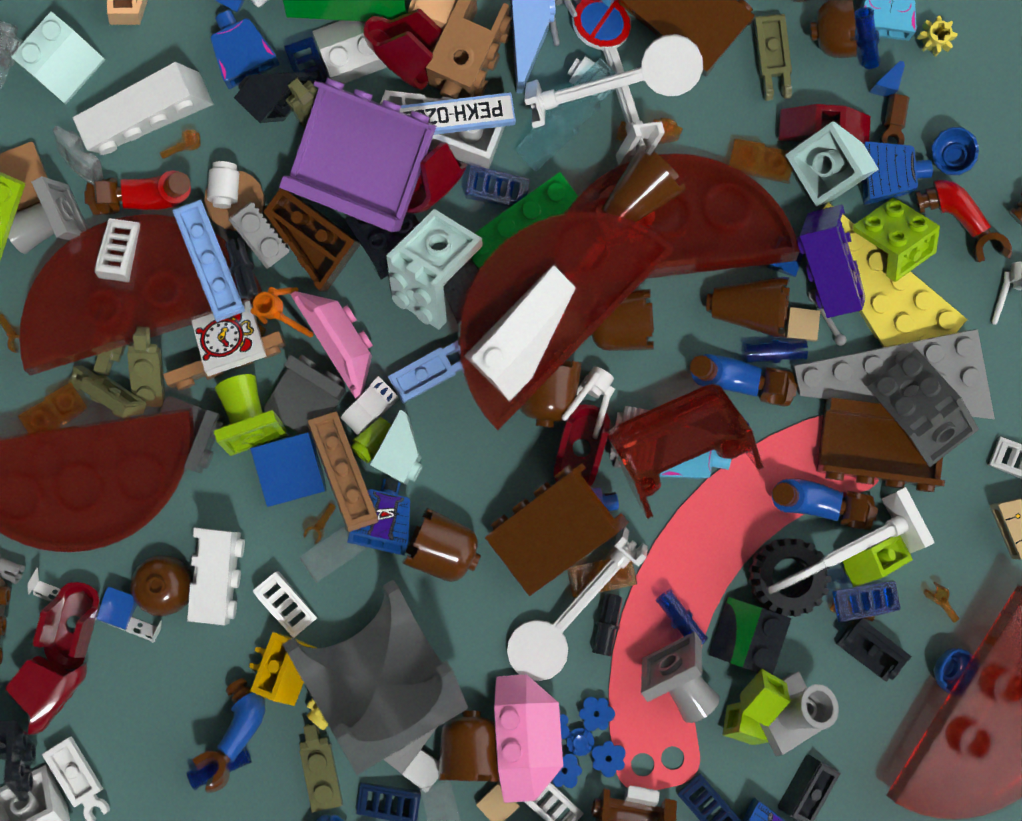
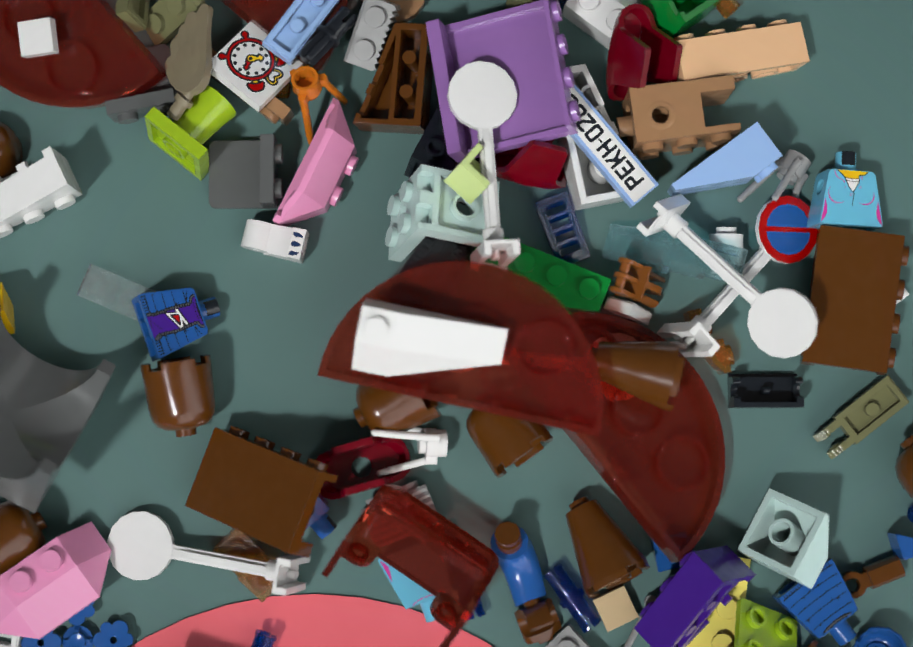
camera: 60 degrees right, 0 degrees up
(101, 489) = (38, 37): none -> white tile
(193, 382) = (190, 60): none -> dark tan animal
(268, 602) = (30, 262): white slope -> none
(288, 469) = (168, 201): blue tile -> none
(321, 523) = (131, 264): clear orange hand -> none
(342, 471) = (192, 253): medium nougat plate -> none
(367, 179) = (484, 99): none -> white piece
(370, 440) = (244, 262): lime cone -> none
(399, 451) = (246, 295): light aqua slope -> none
(418, 226) = (467, 177): none -> yellowish green panel
(425, 373) = (337, 271): light blue hinge -> none
(571, 156) = (633, 282): none -> dark orange arm
(588, 176) = (628, 310): none -> white tile
(607, 624) = (205, 598): black axle -> none
(711, 114) = (764, 391): none -> black hinge
(761, 161) = (749, 468): clear orange slope -> none
(804, 121) = (816, 489): dark red slope -> none

